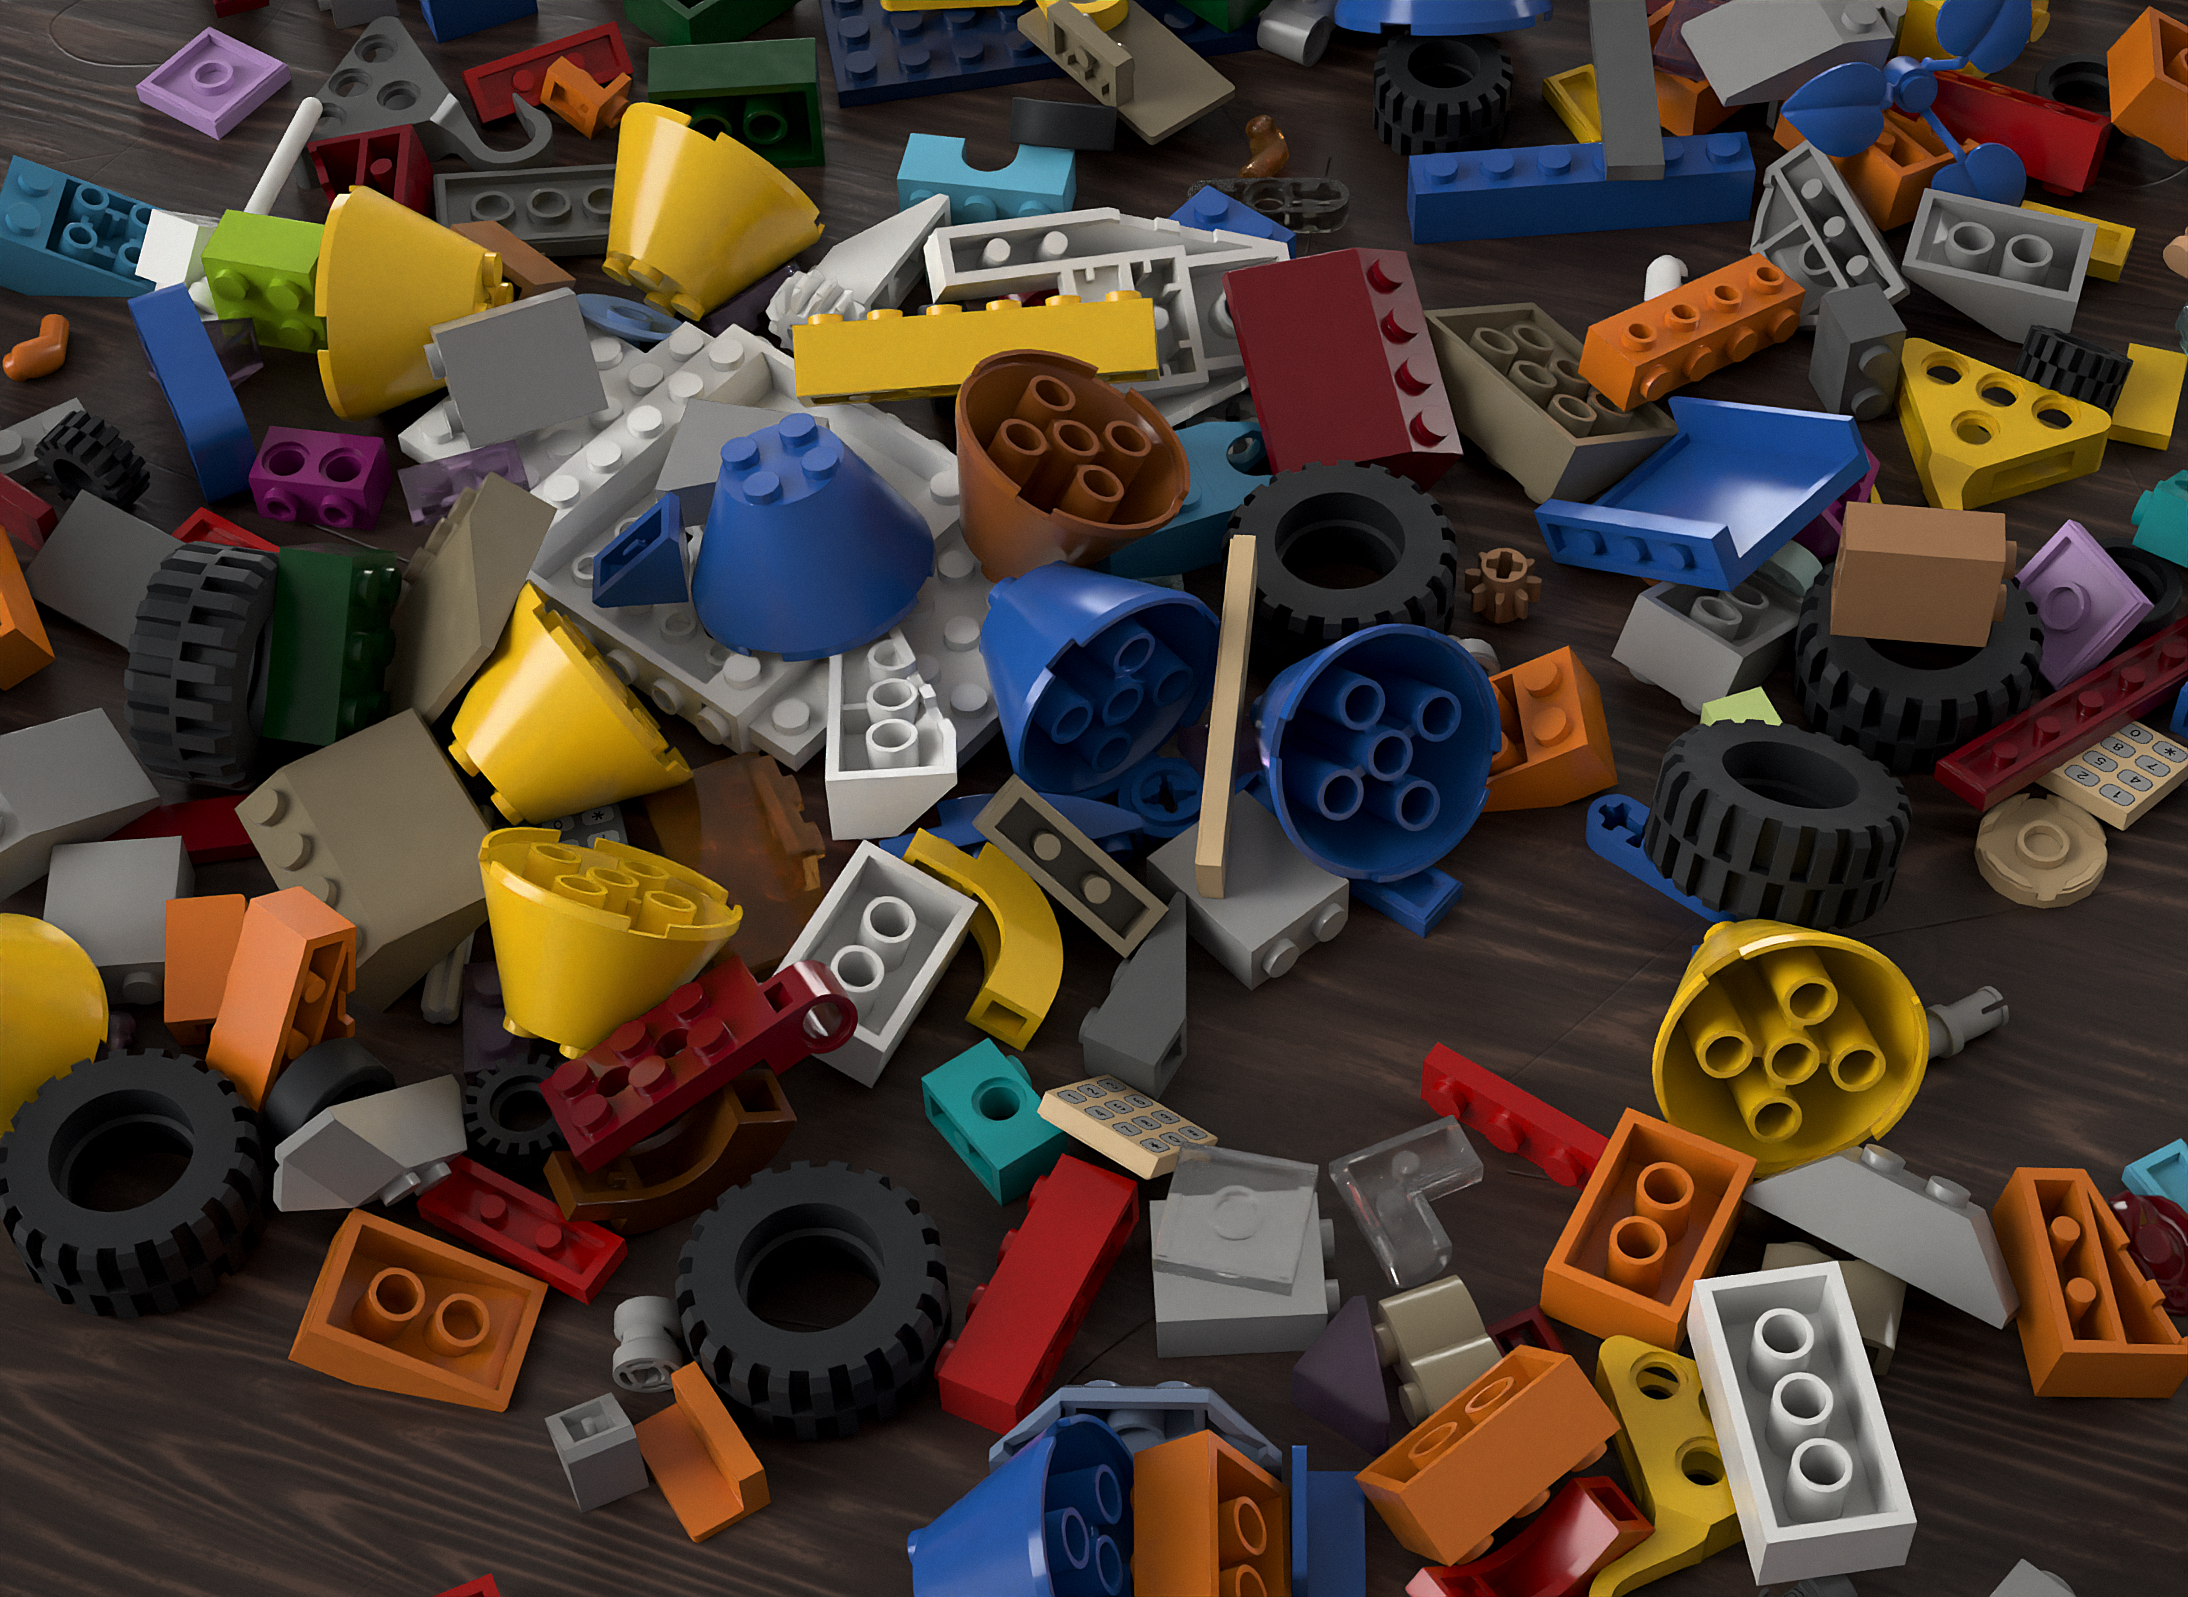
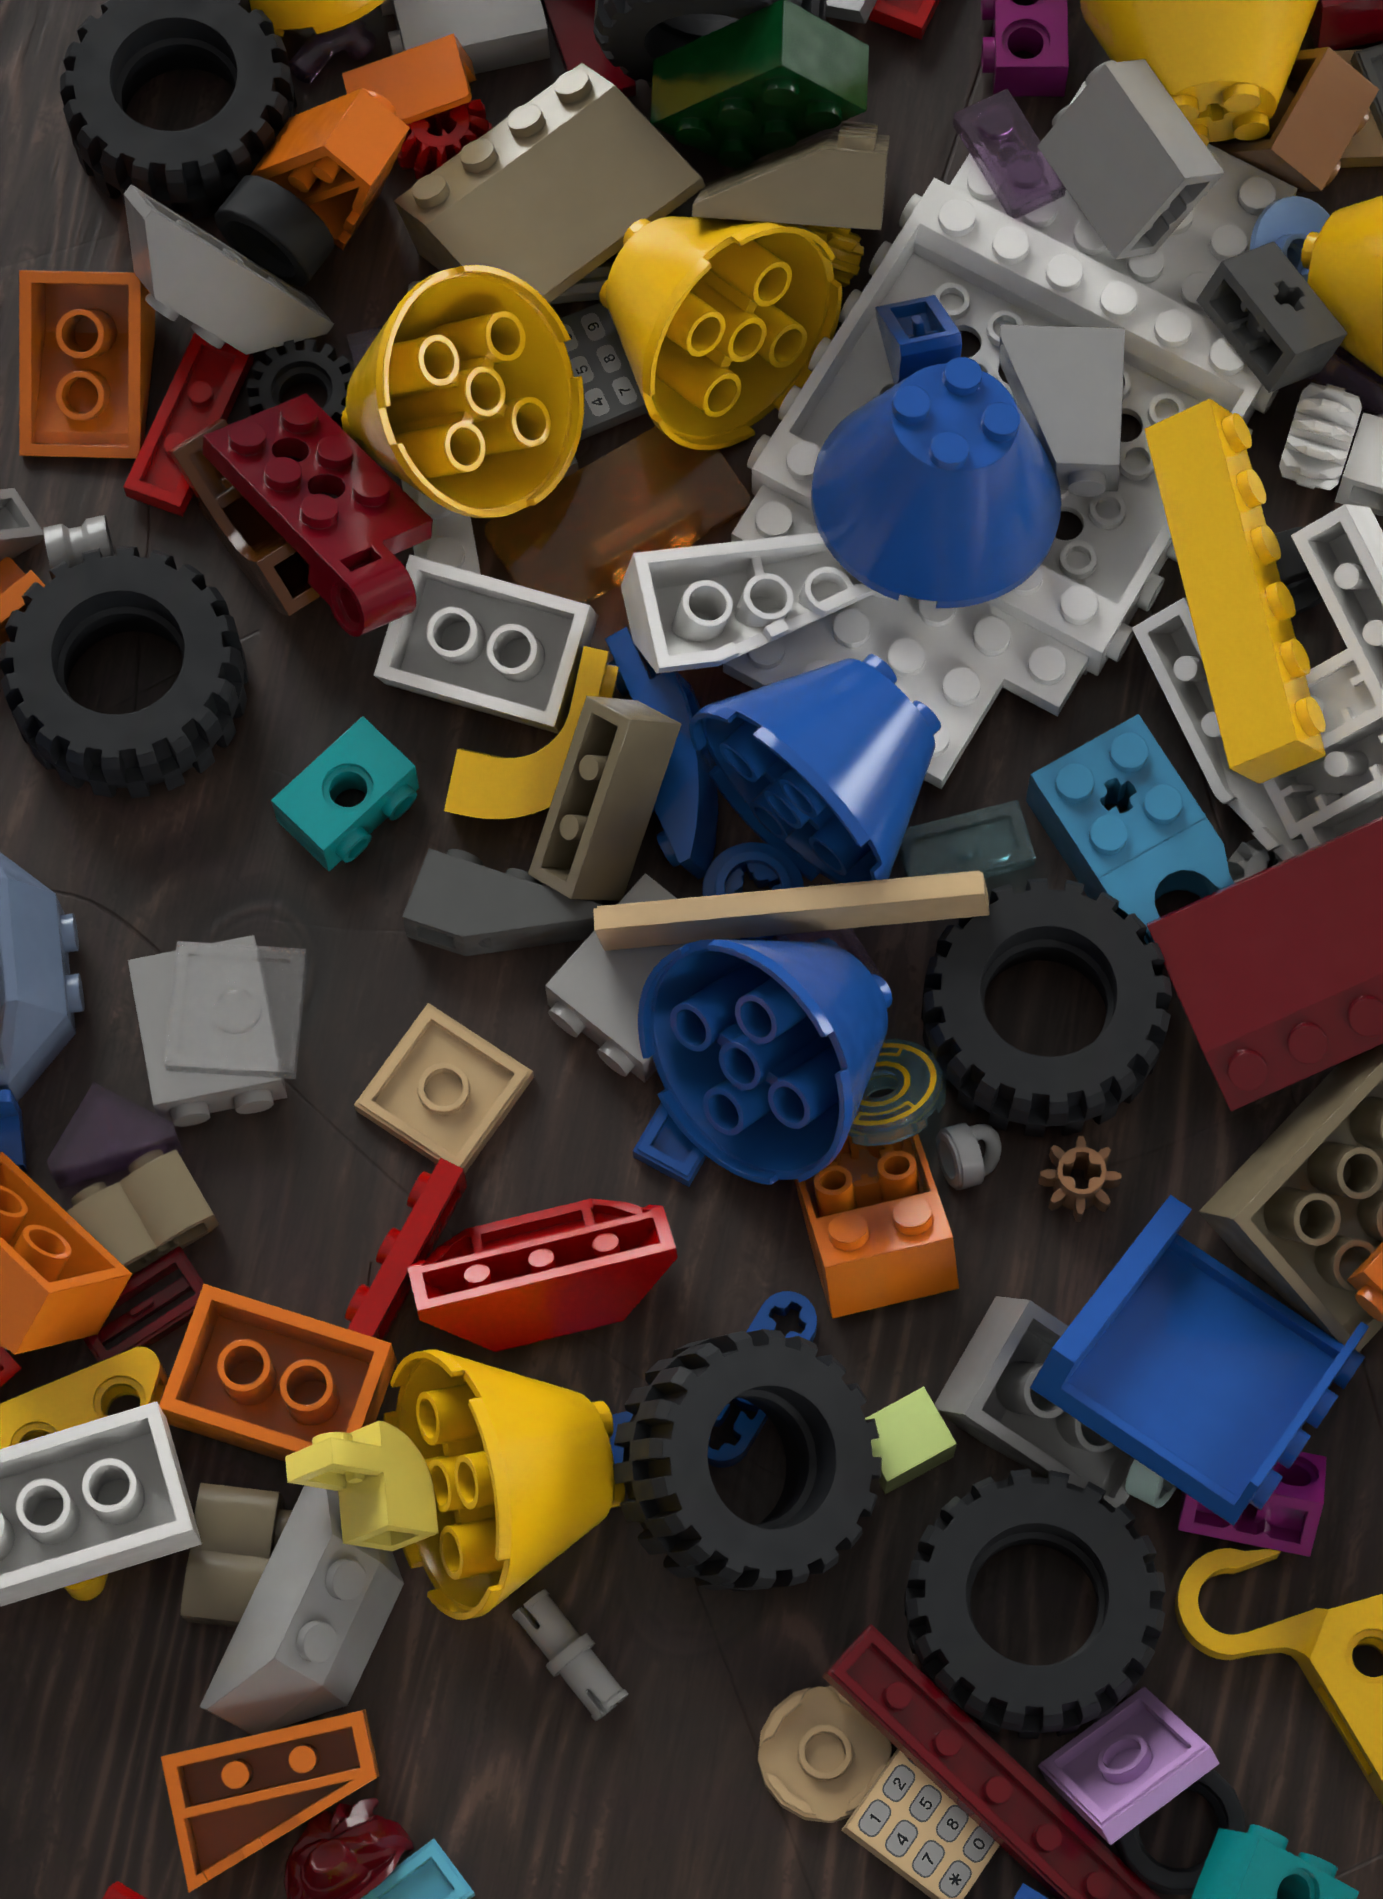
camera: 80 degrees right, 20 degrees up
(704, 306) = (1271, 316): none -> dark grey brick
(1038, 1295) = (167, 861): red brick -> none
(1059, 464) = (1053, 691): dark orange cone -> none
(1122, 1124) = (341, 906): tan tile -> none
(1333, 1082) = (444, 1089): none -> tan tile
(1390, 1194) = (314, 1147): clear brick -> none
(1545, 986) = (544, 1272): none -> red wedge
(1788, 1116) = (379, 1483): none -> light yellow brick
(1920, 574) = (1042, 1567): medium nougat brick -> none

